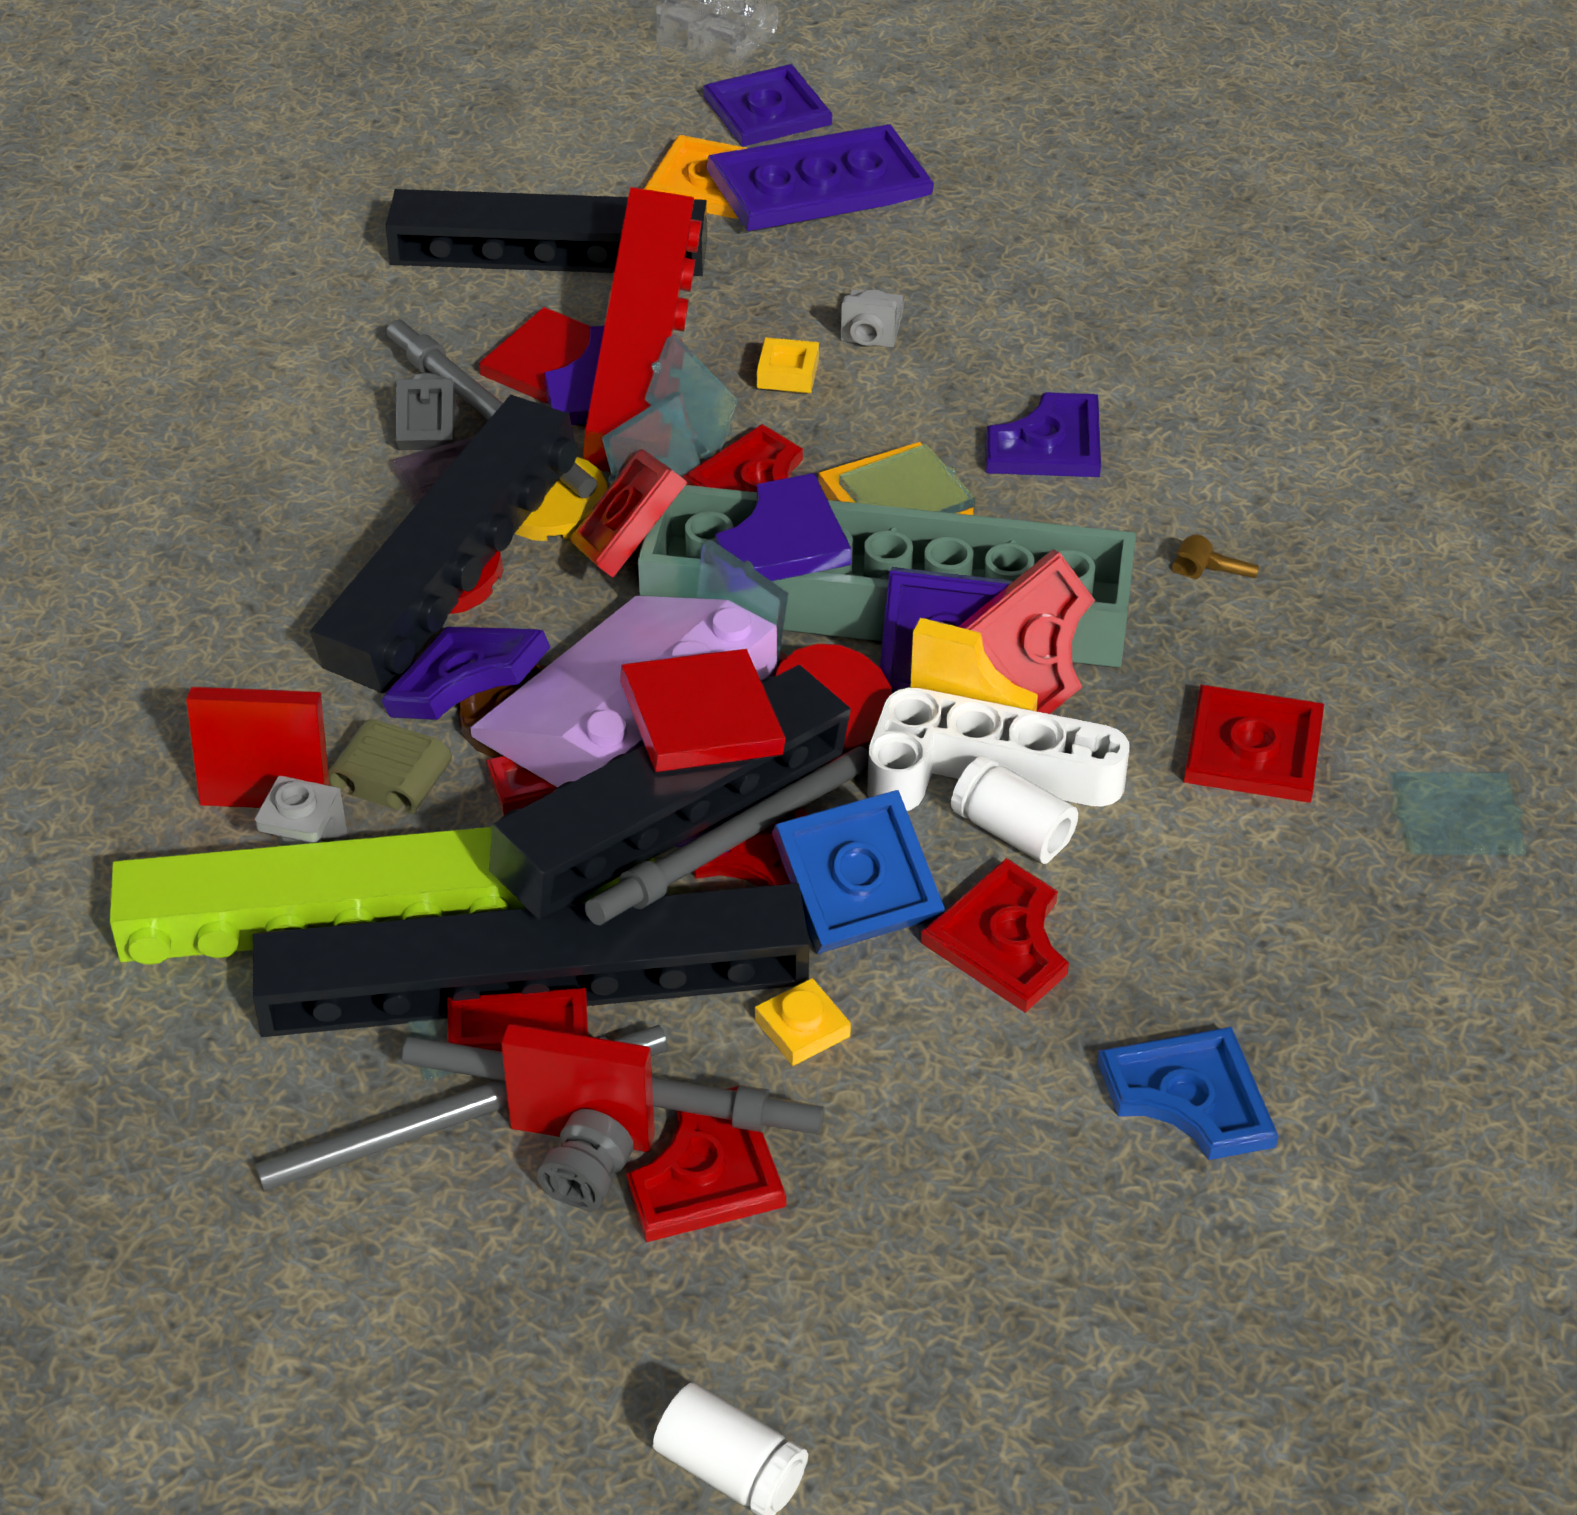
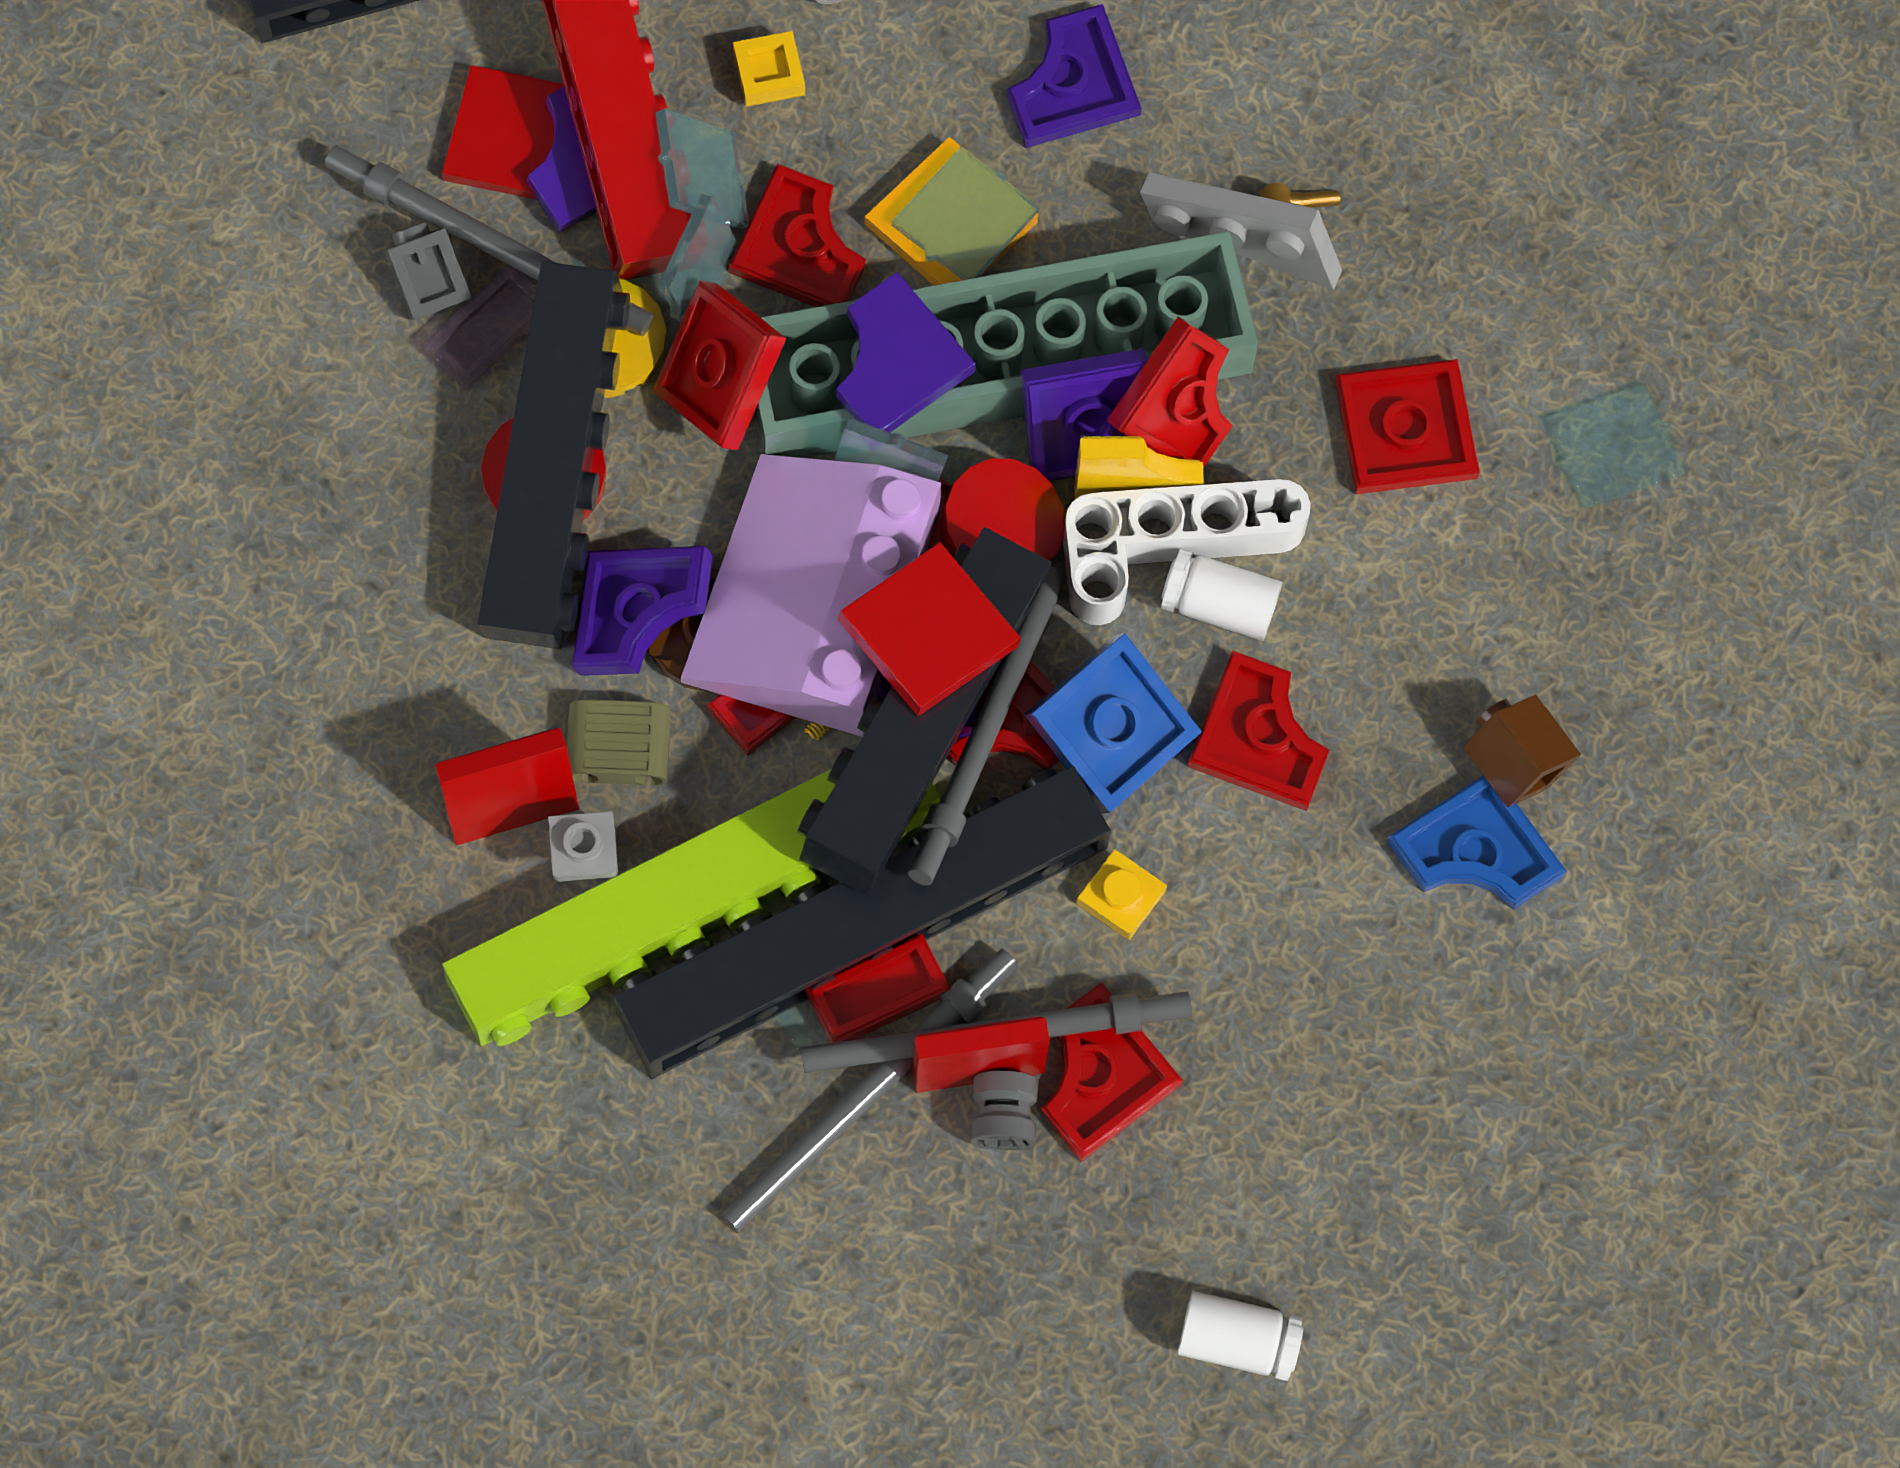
camera: 25 degrees left, 25 degrees up
(1173, 554) = (1260, 227): none -> light grey wing
(1267, 1010) = (1520, 749): none -> reddish brown brick

